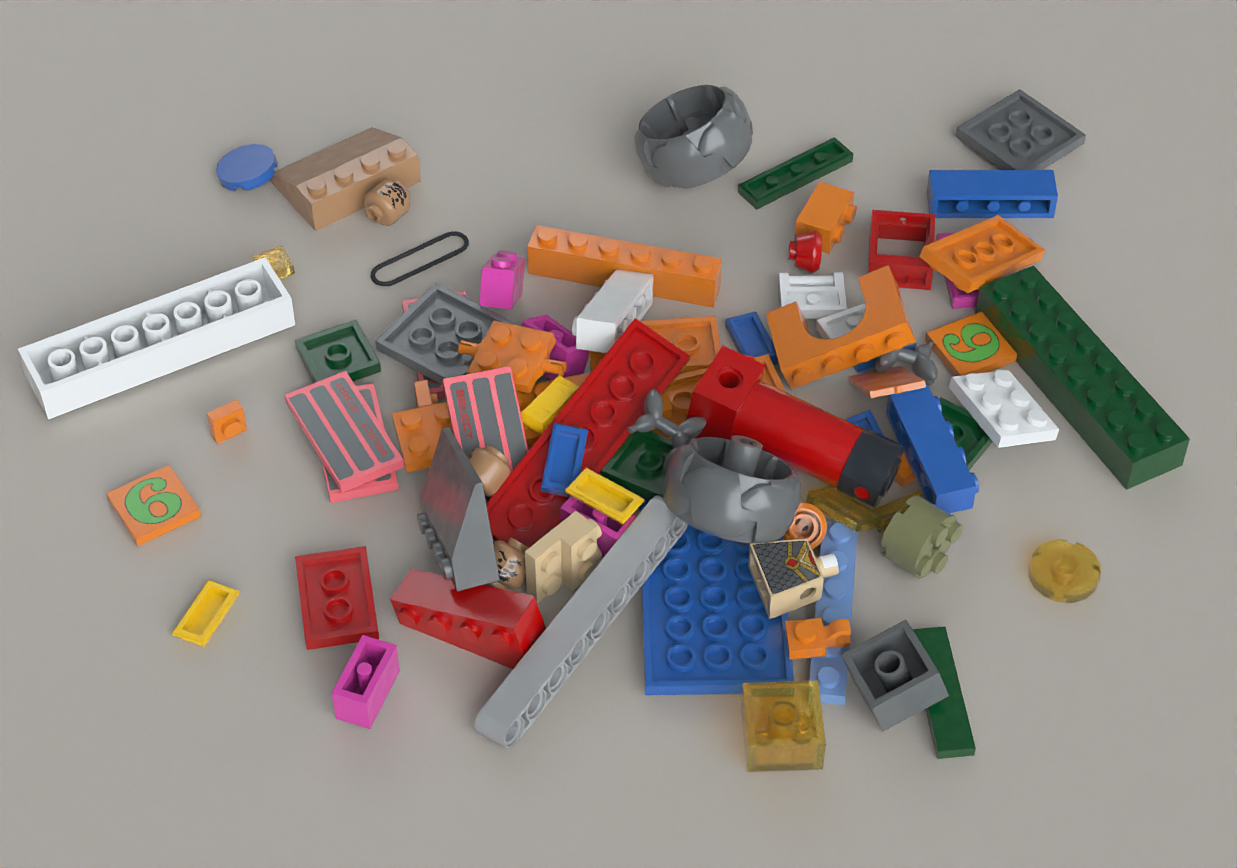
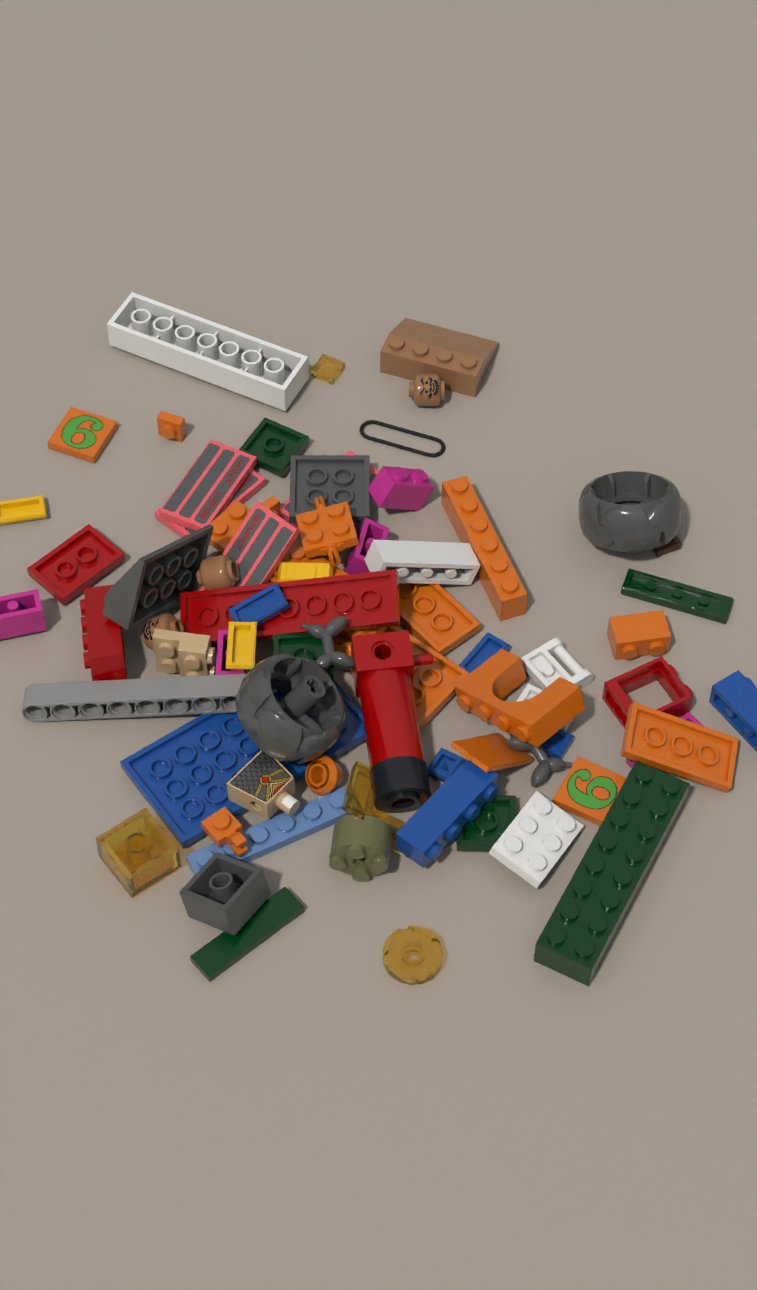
camera: 55 degrees right, 5 degrees up
(247, 167) = (398, 302): tile -> none
(806, 251) = (593, 643): red cone -> none

